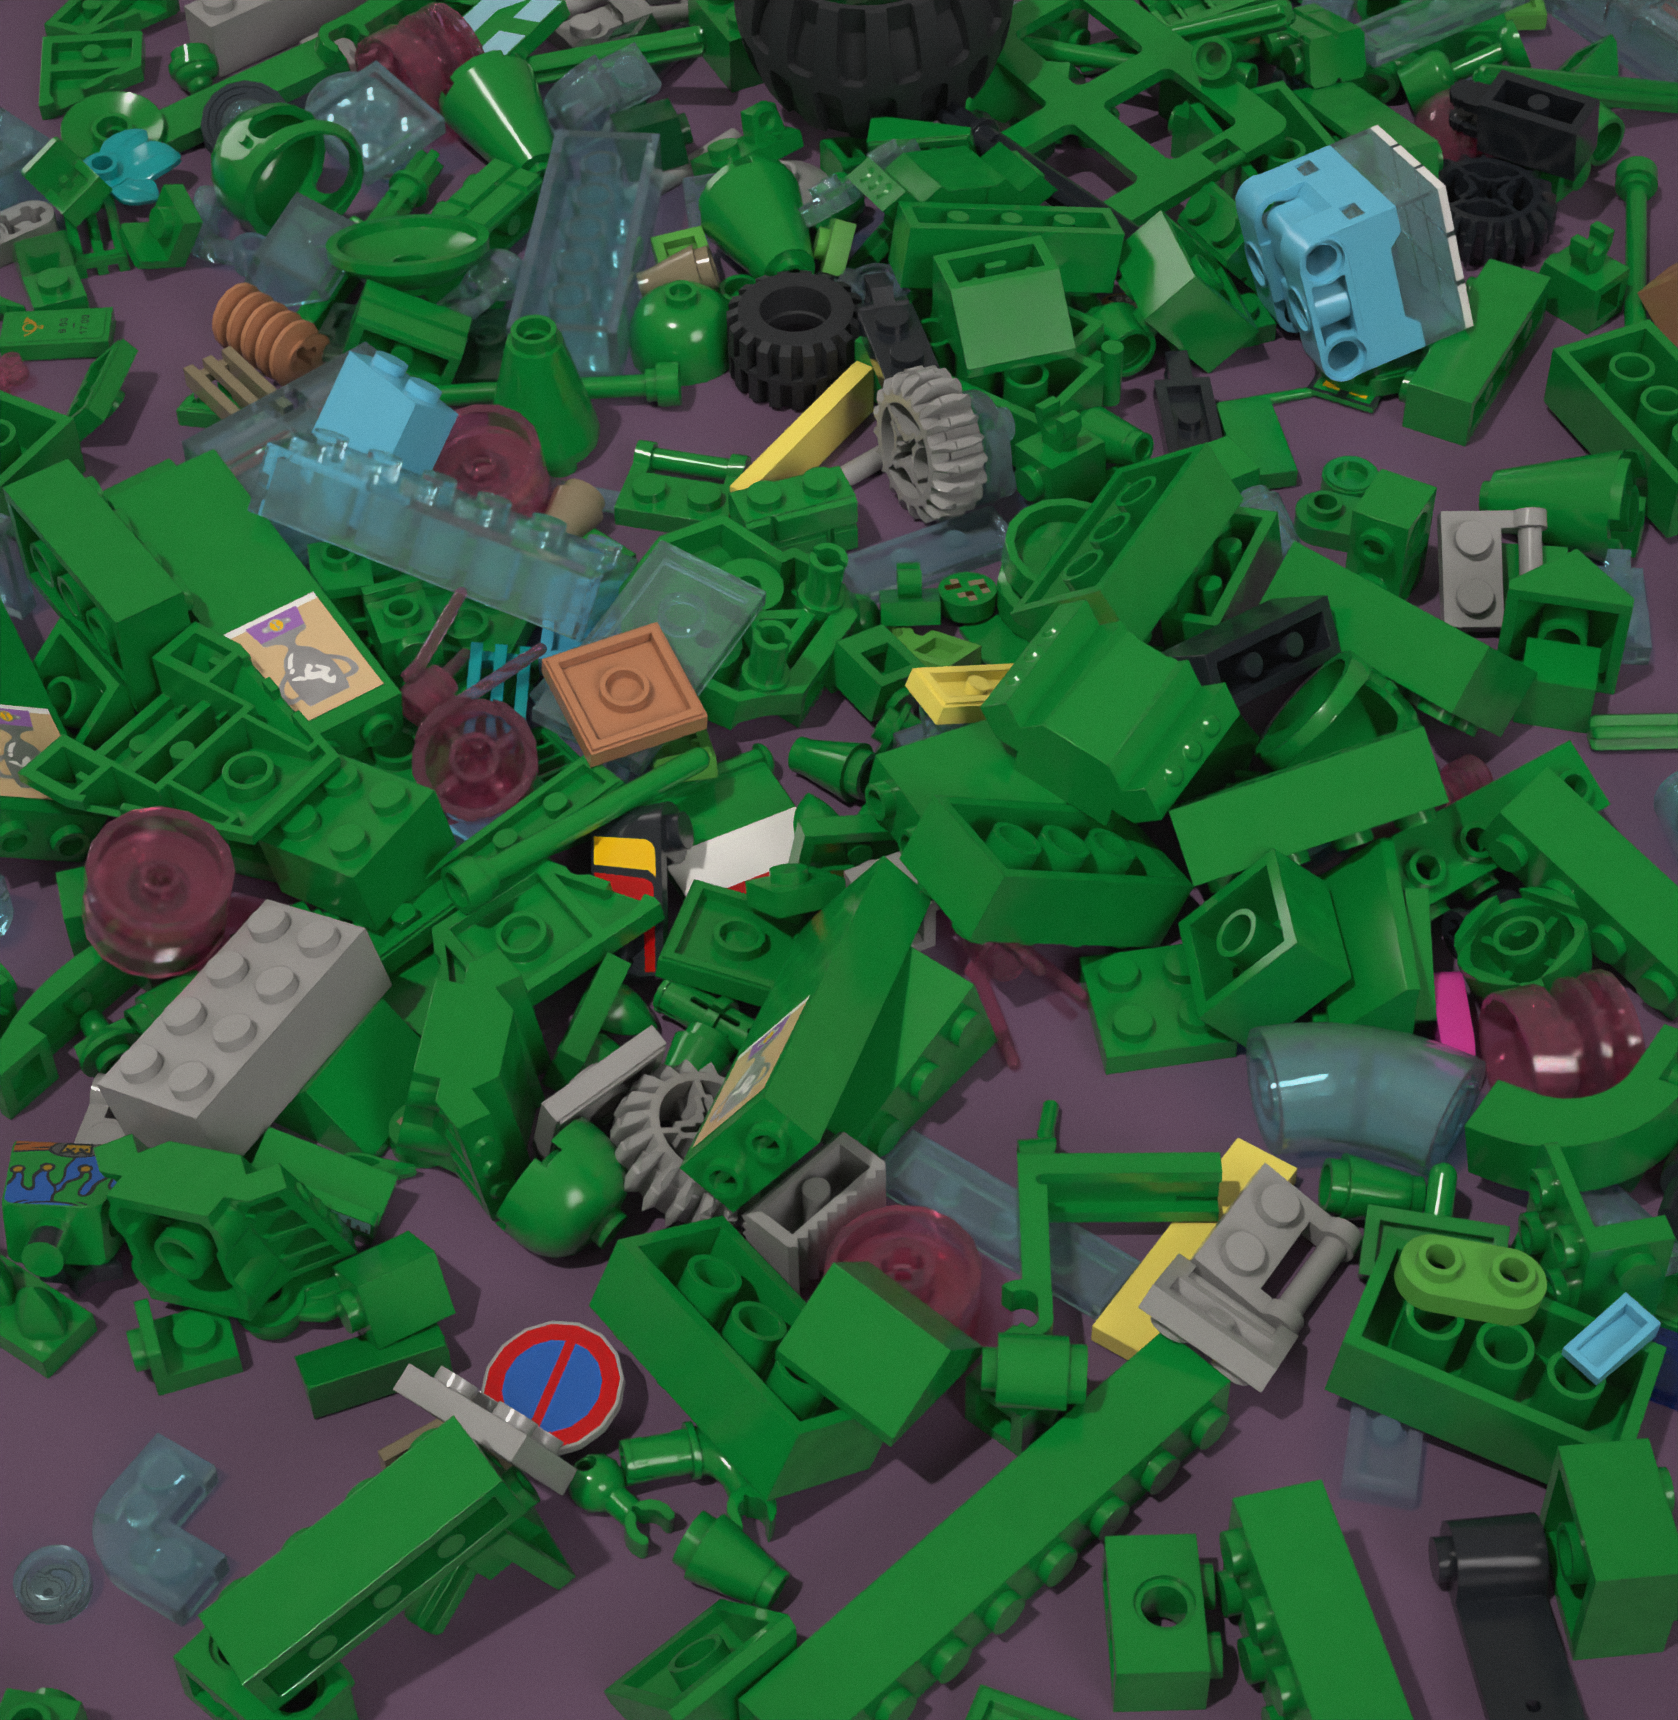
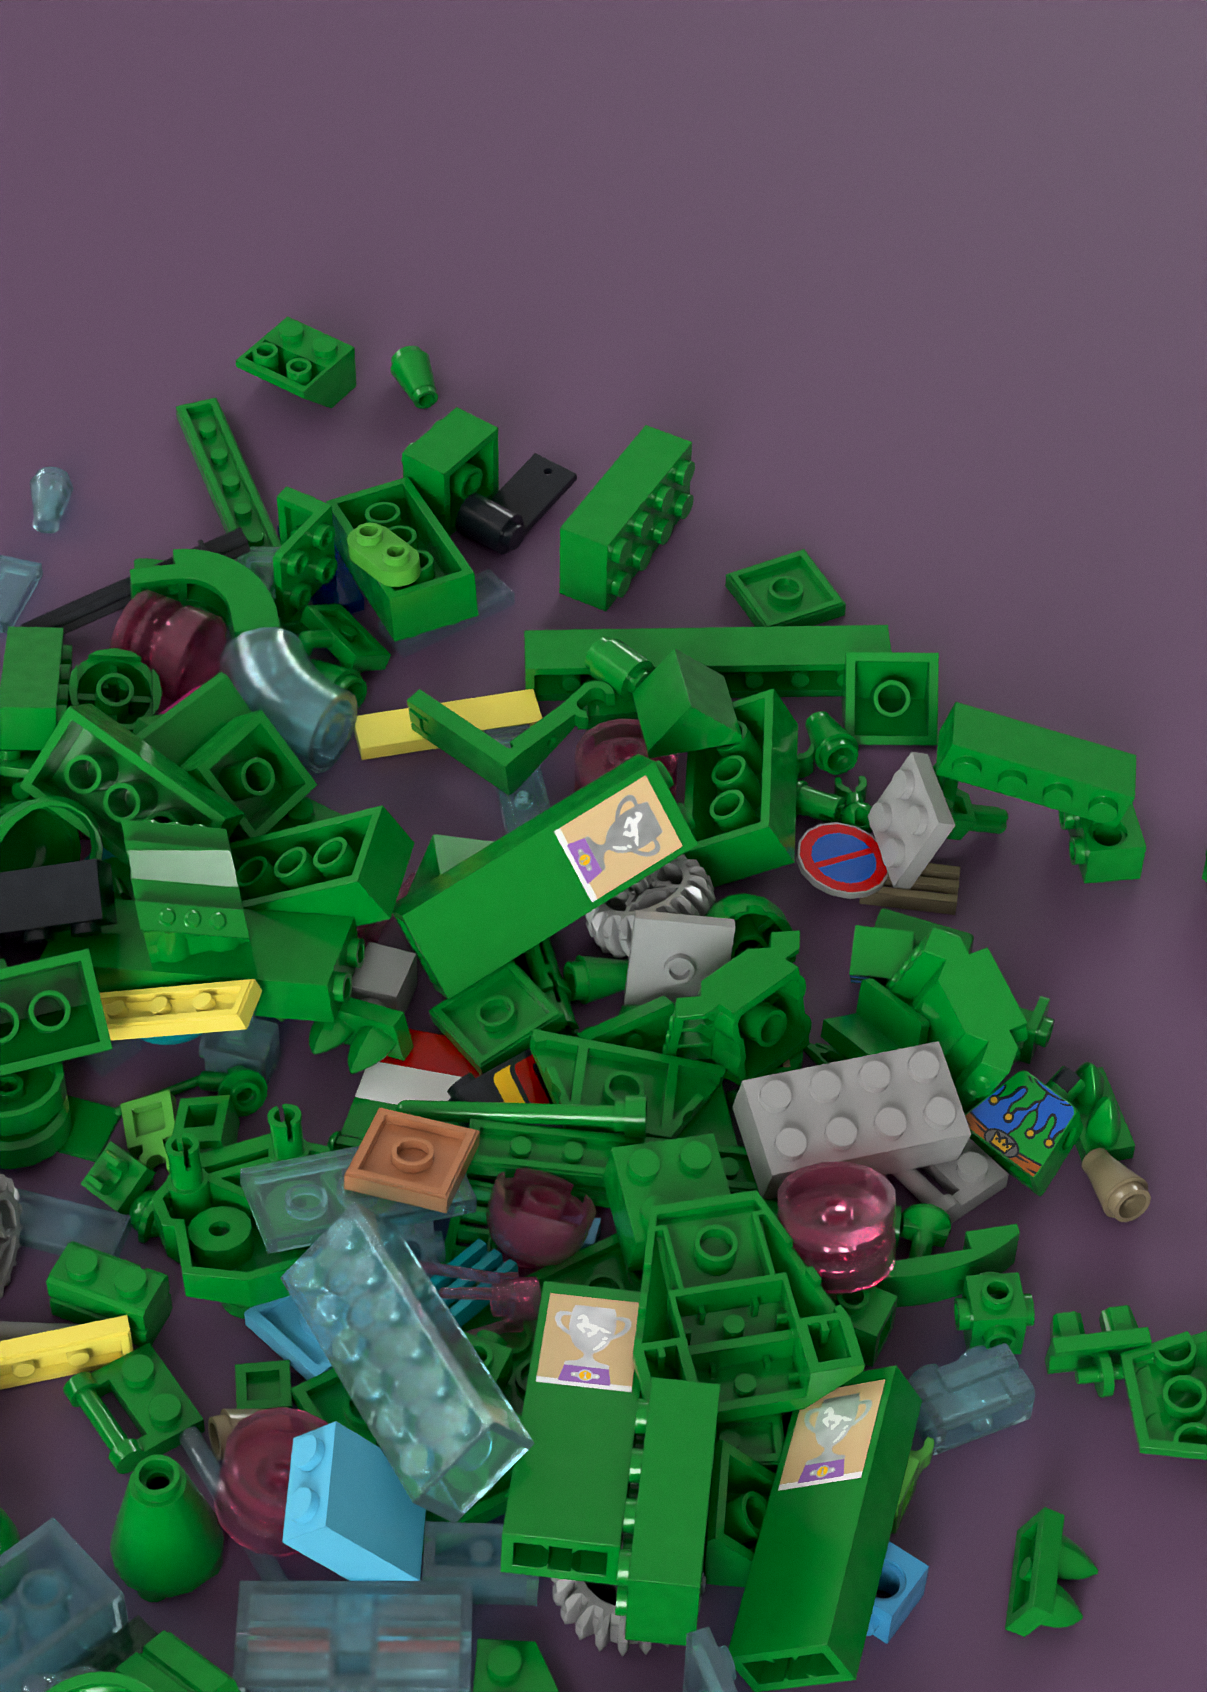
camera: 140 degrees left, 0 degrees up
(53, 1584) = (1173, 962): clear light blue tile -> none
(141, 1533) = (1106, 958): clear light blue plate -> none
(657, 384) = (38, 1507): green piece -> none
(793, 890) = (437, 1003): green bracket -> none
(834, 765) = (302, 1087): green cone -> none
(967, 597) = (68, 1165): green tile -> none
(1045, 1140) = (464, 813): green hand -> none
(1151, 1663) = (666, 591): green brick -> none
(1199, 1313) = (507, 651): light grey plate -> none
(1257, 1236) = (438, 679): light grey plate -> none
(1611, 1339) = (353, 508): medium azure piece -> none

